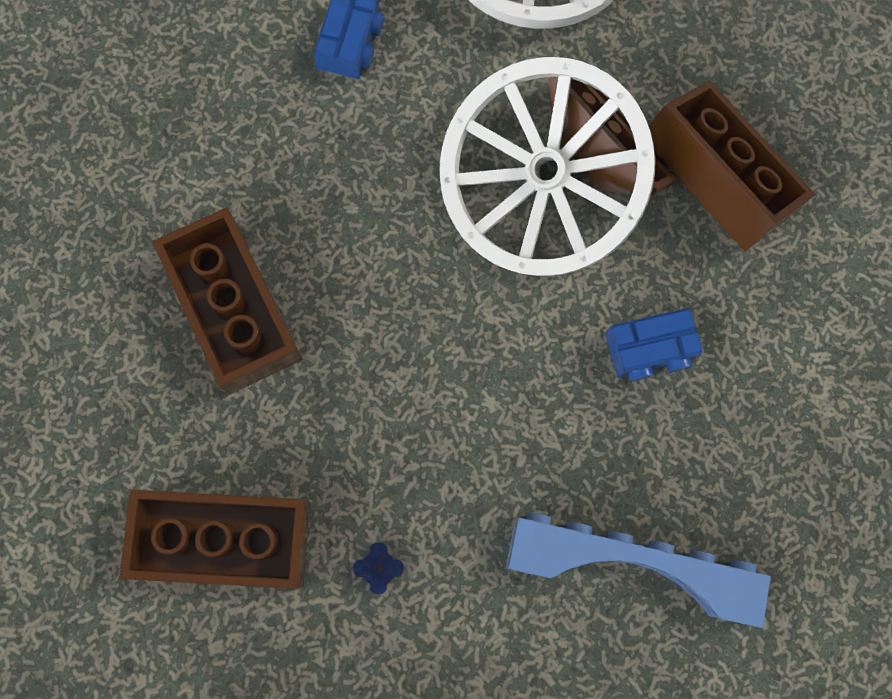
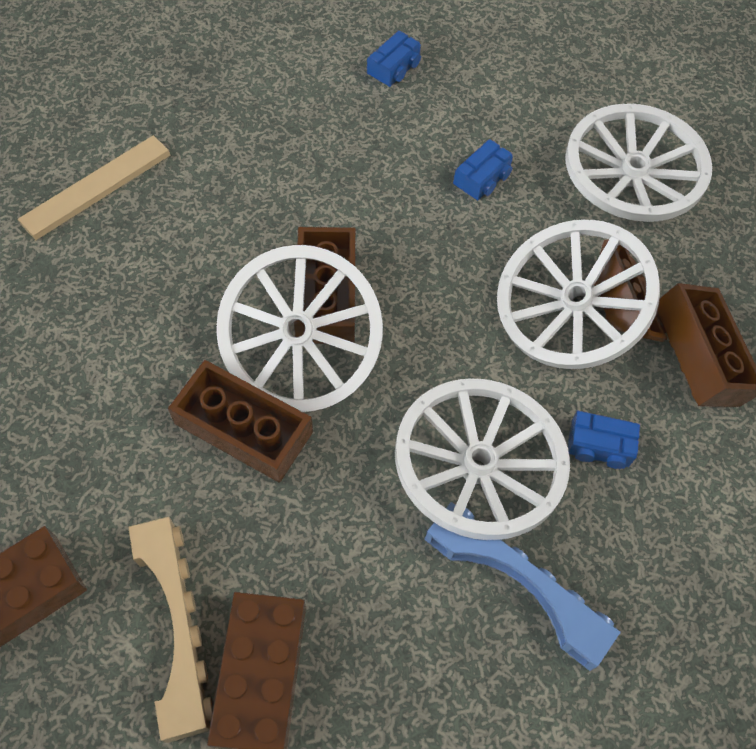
camera: 30 degrees right, 15 degrees down
(154, 456) = (300, 253): none -> white wheel
(366, 568) = (332, 502): clear blue plate -> none
(580, 361) = (483, 452): none -> white wheel

